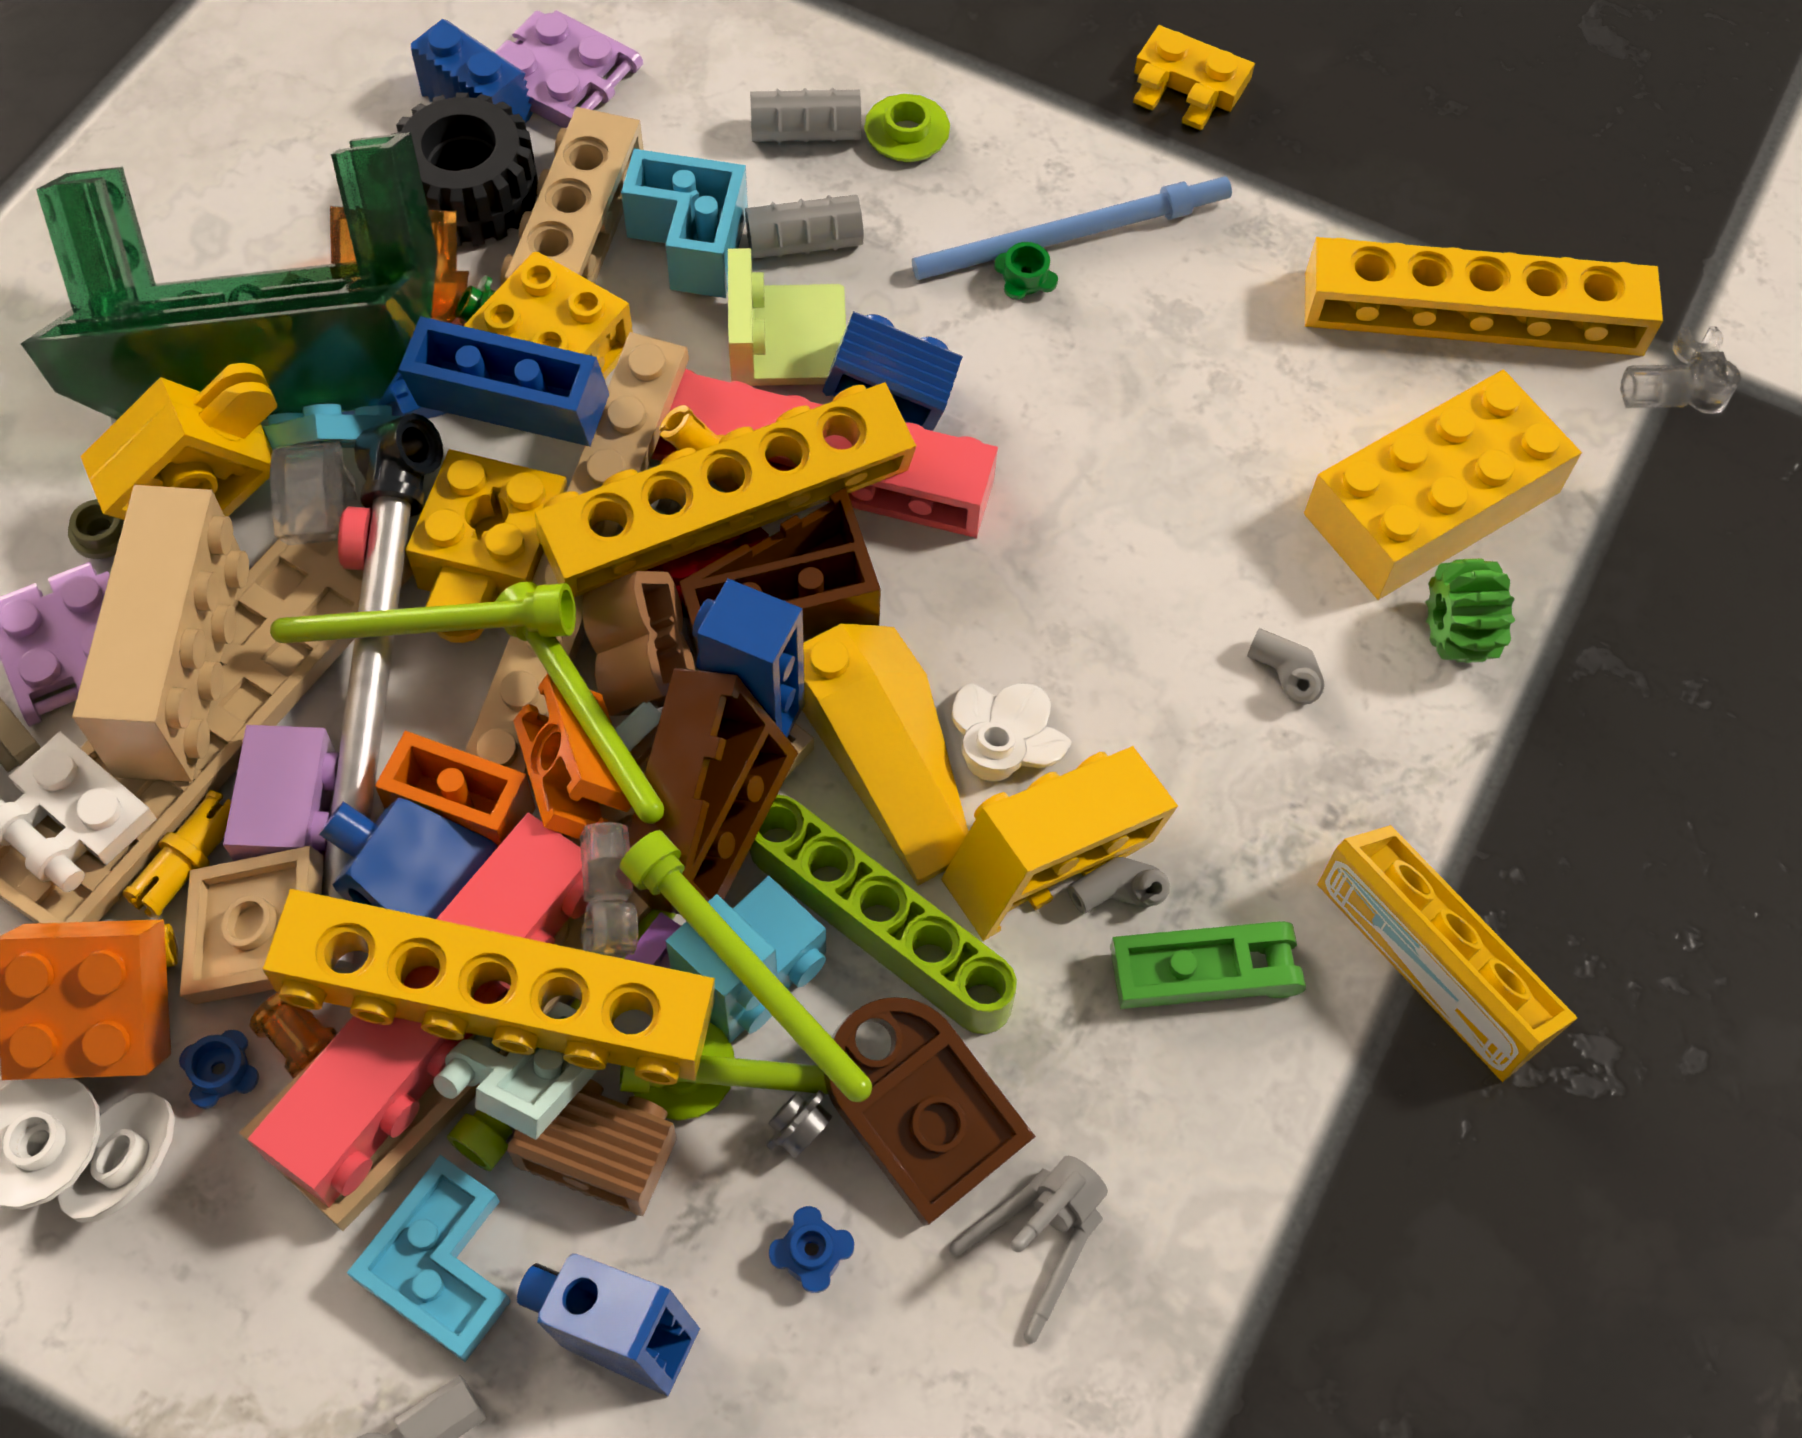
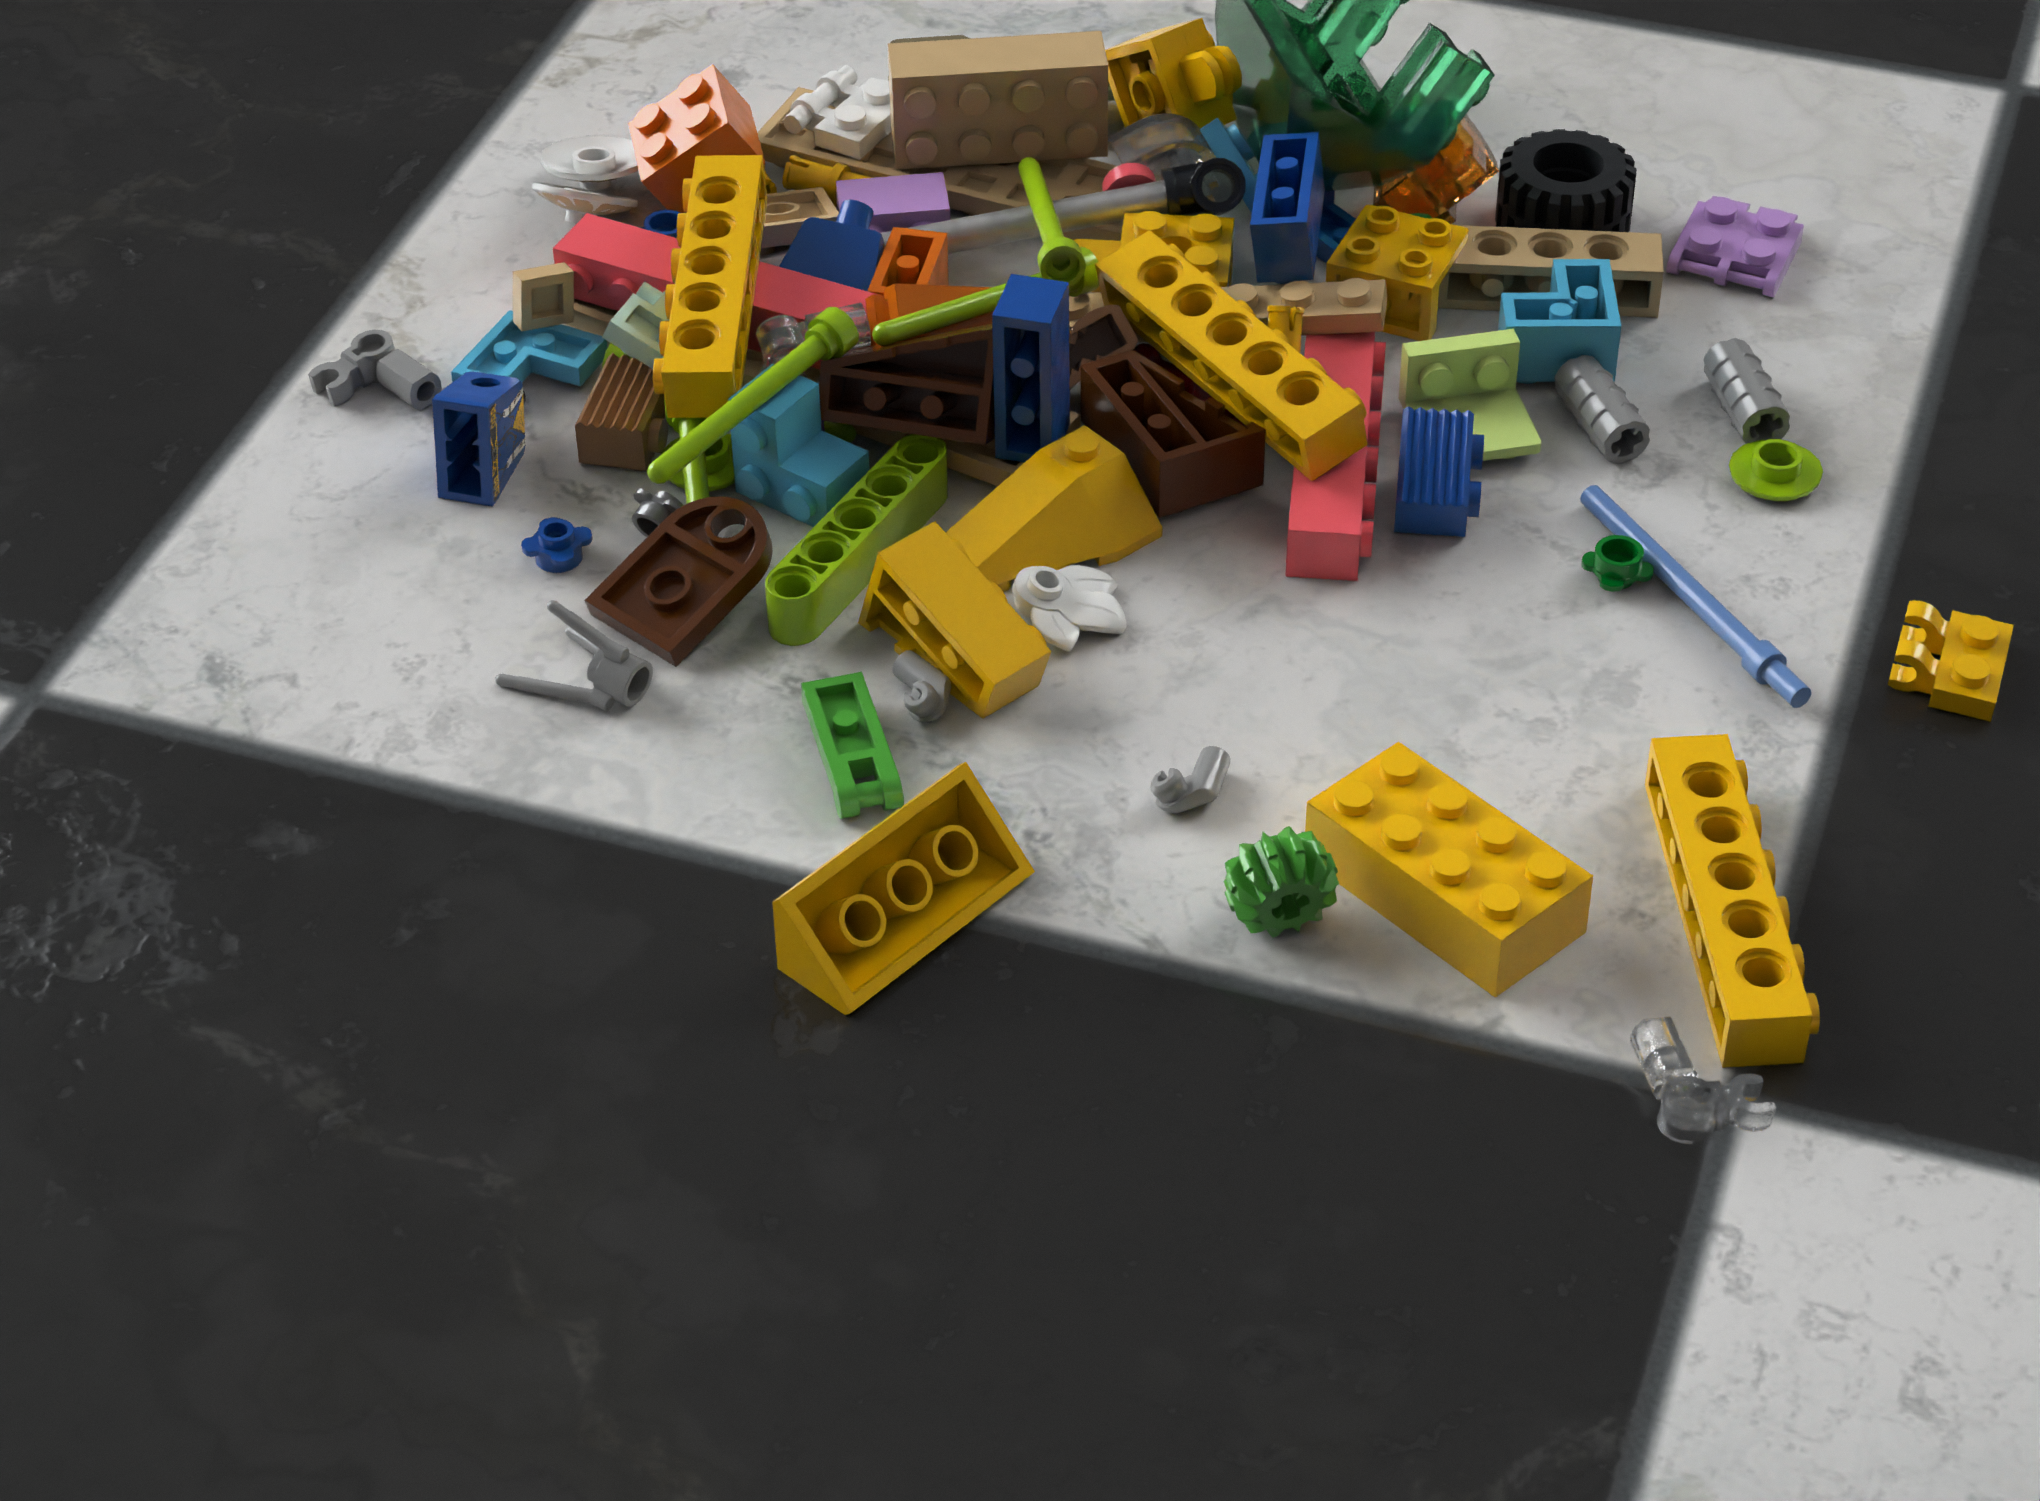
camera: 85 degrees right, 20 degrees down
(372, 1218) = (543, 296): none -> tan plate
(455, 62) = (1675, 180): blue brick -> none

